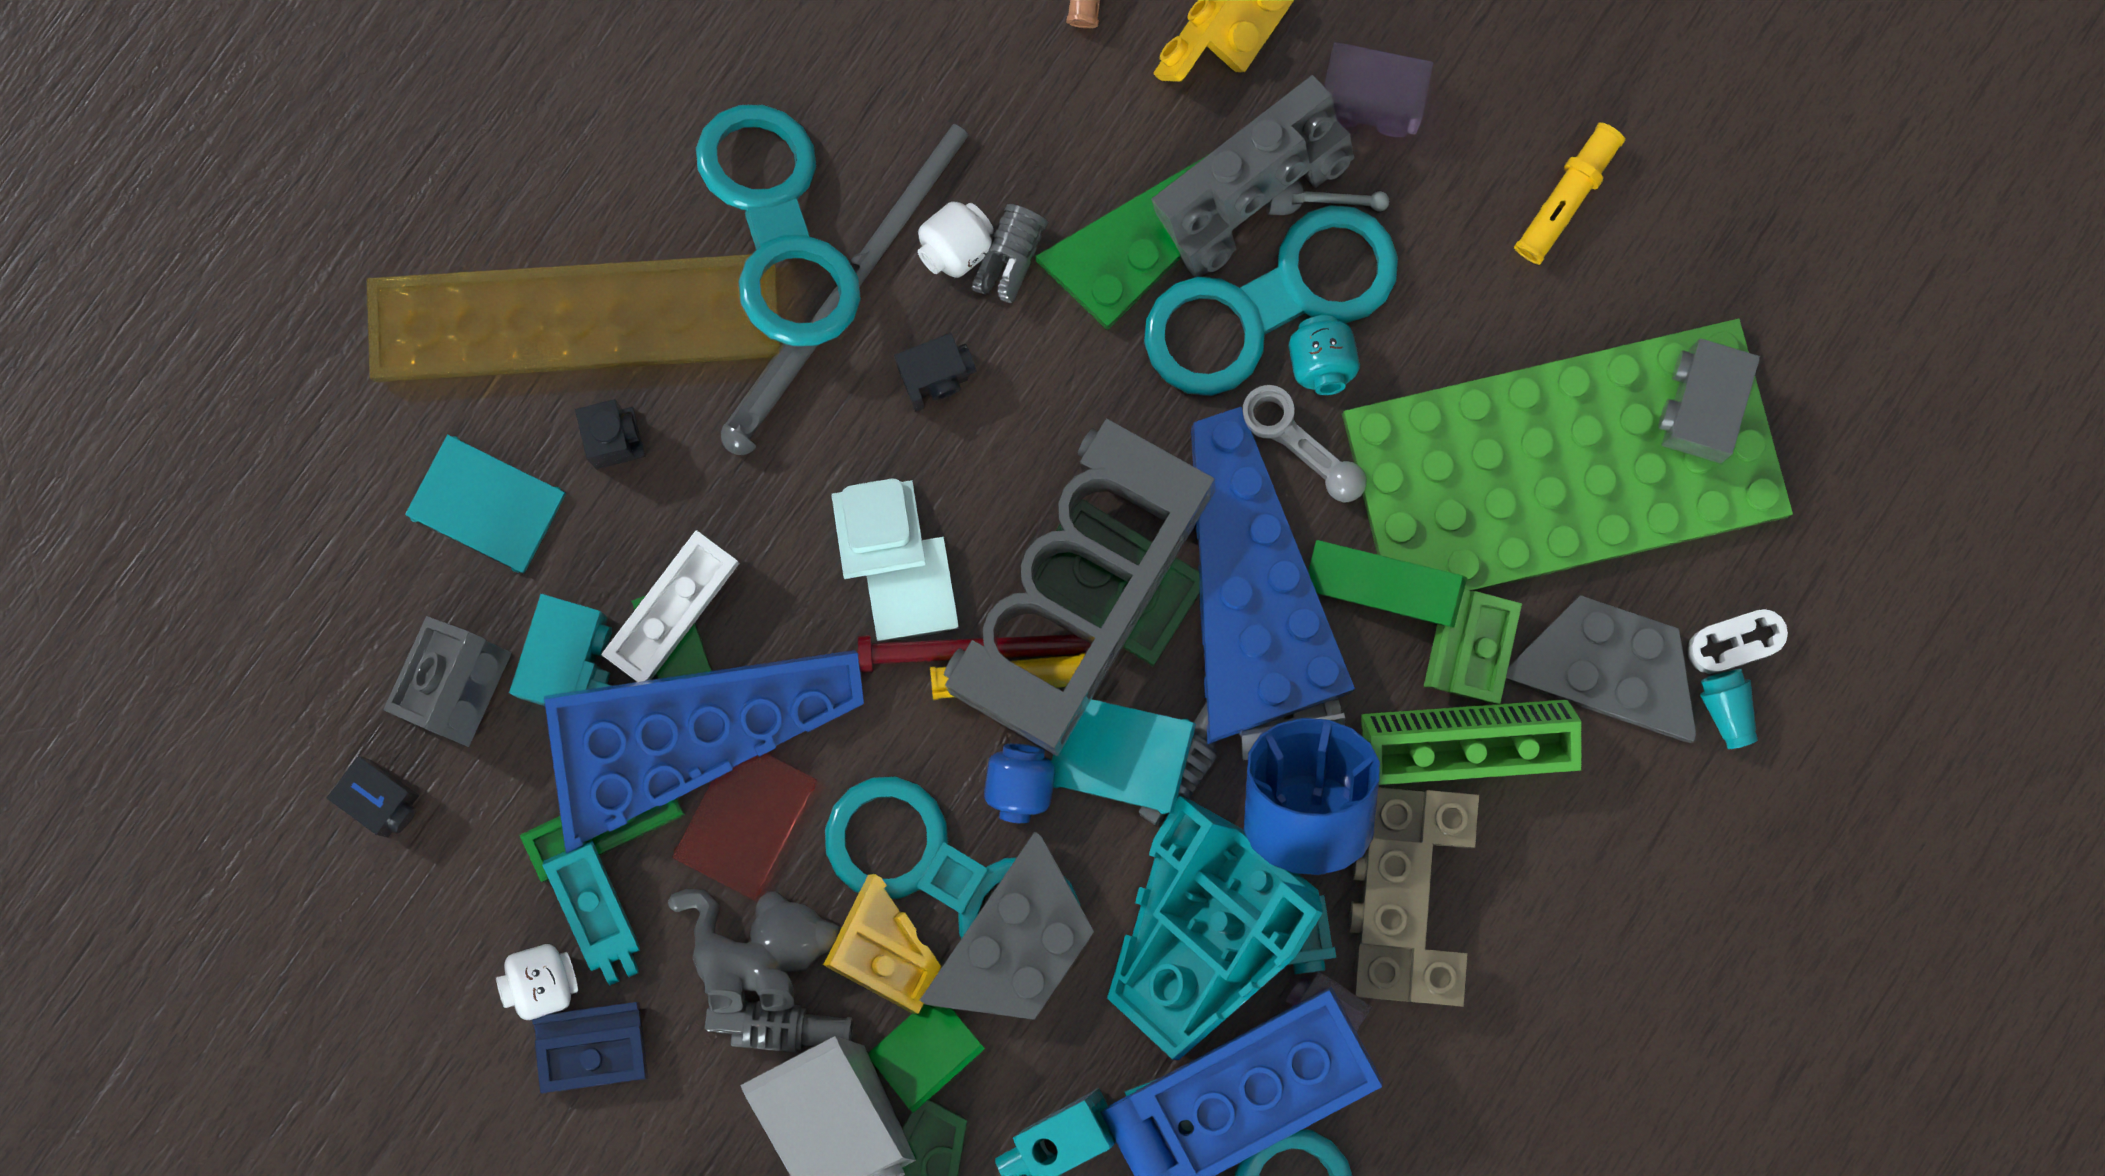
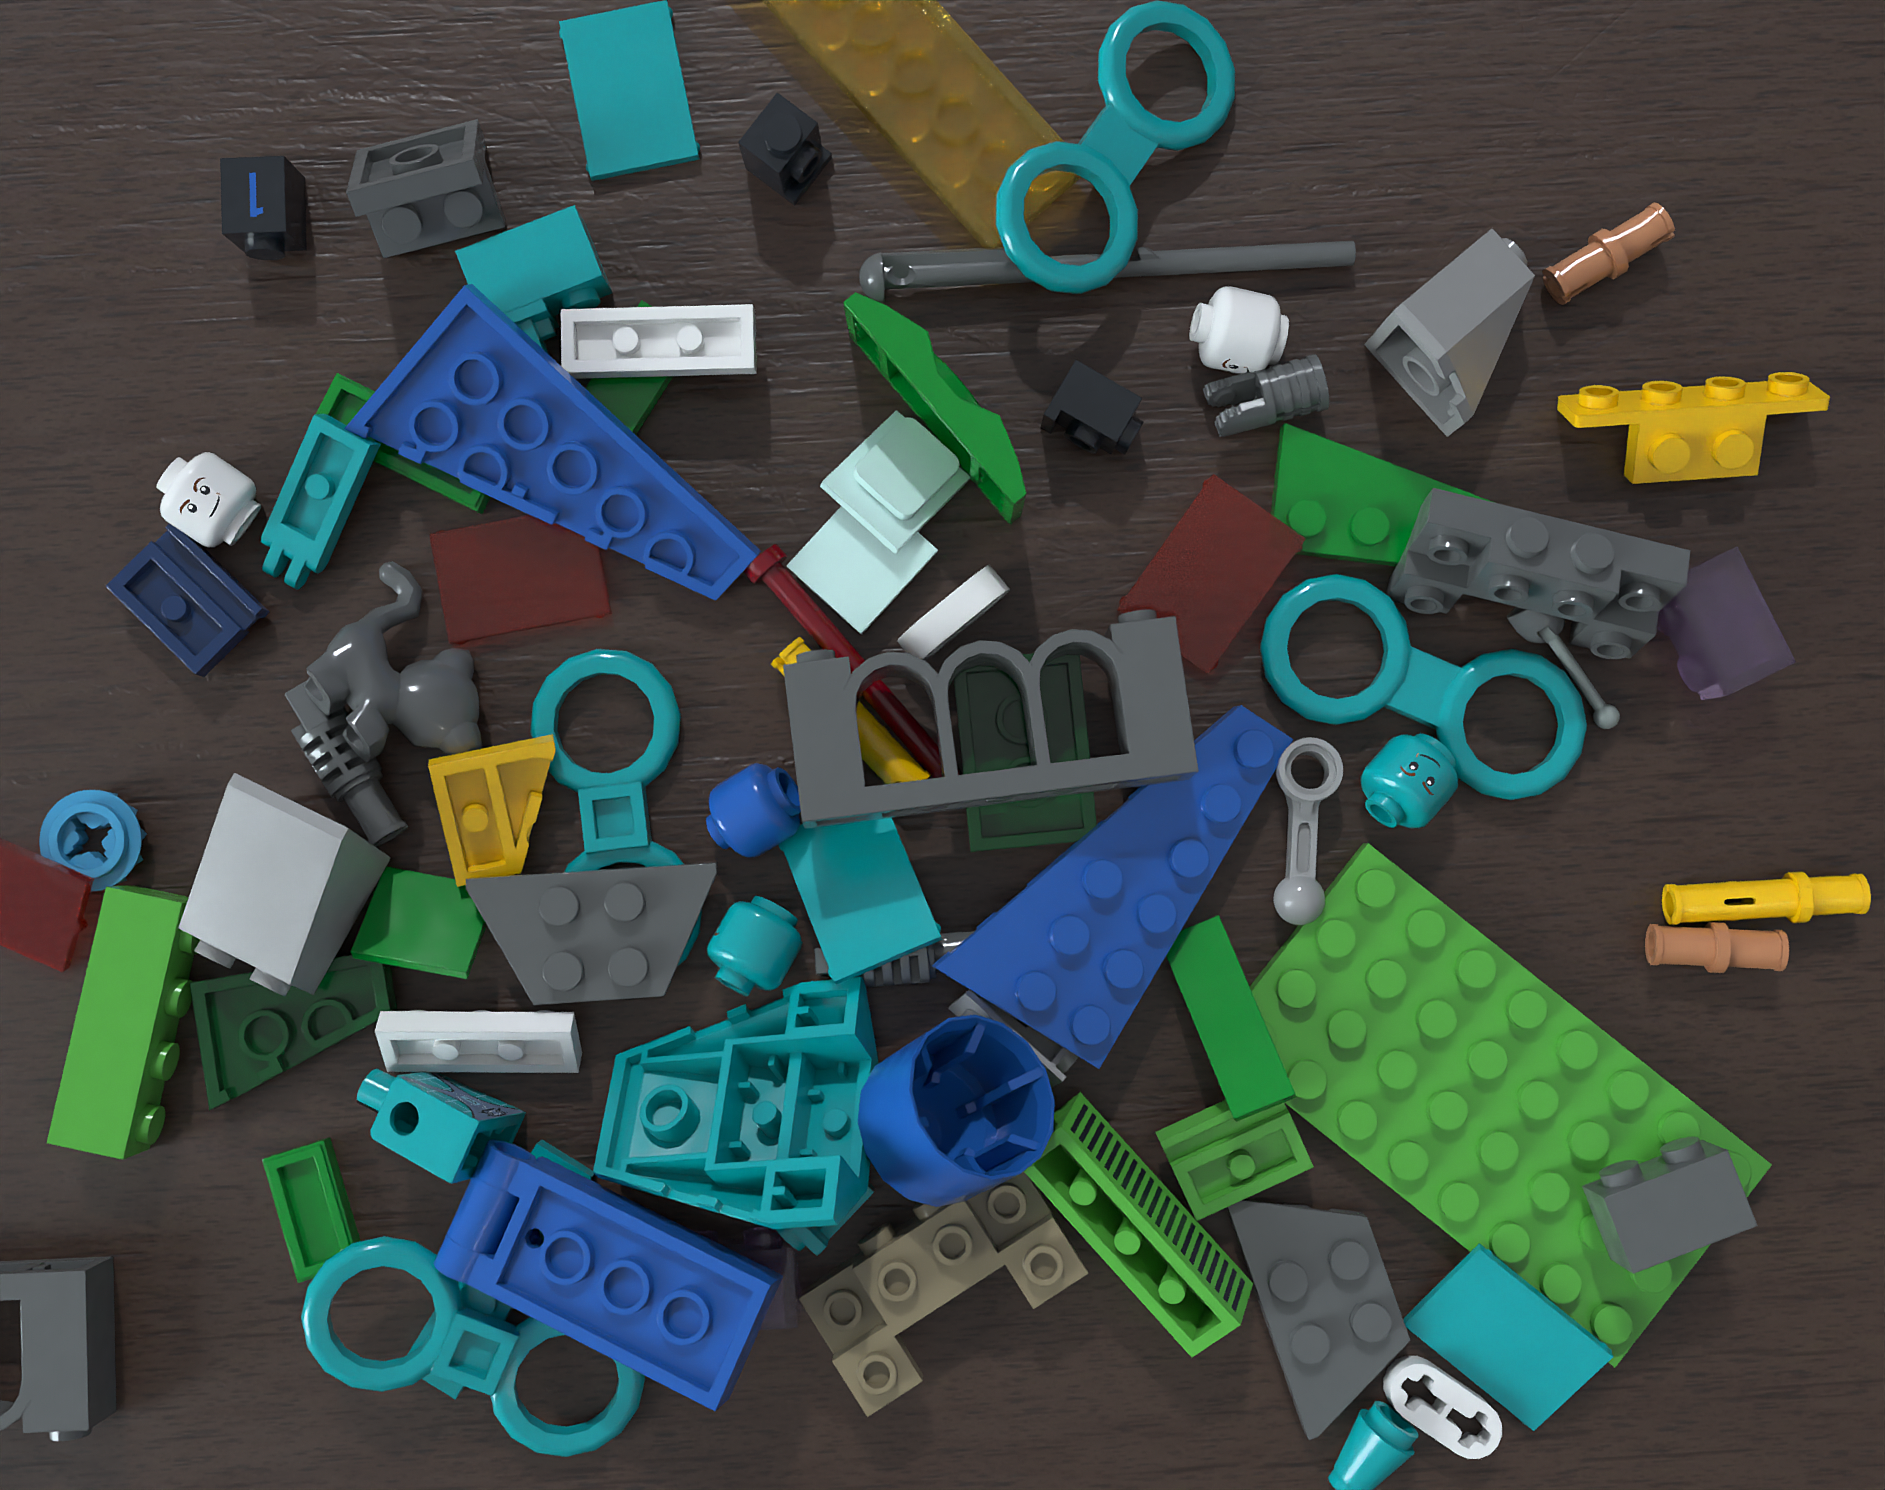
camera: 50 degrees right, 5 degrees up
(854, 460) = (939, 400): none -> green slope
(993, 557) = (954, 614): none -> white beam
(1030, 1077) = (479, 1041): none -> white plate
(1061, 105) = (1454, 329): none -> light grey slope
(1094, 372) = (1214, 570): none -> clear red piece
(1106, 849) = (754, 946): none -> teal head
(1576, 246) = (1717, 947): none -> nougat pin
(1722, 566) = (1507, 1337): none -> teal piece

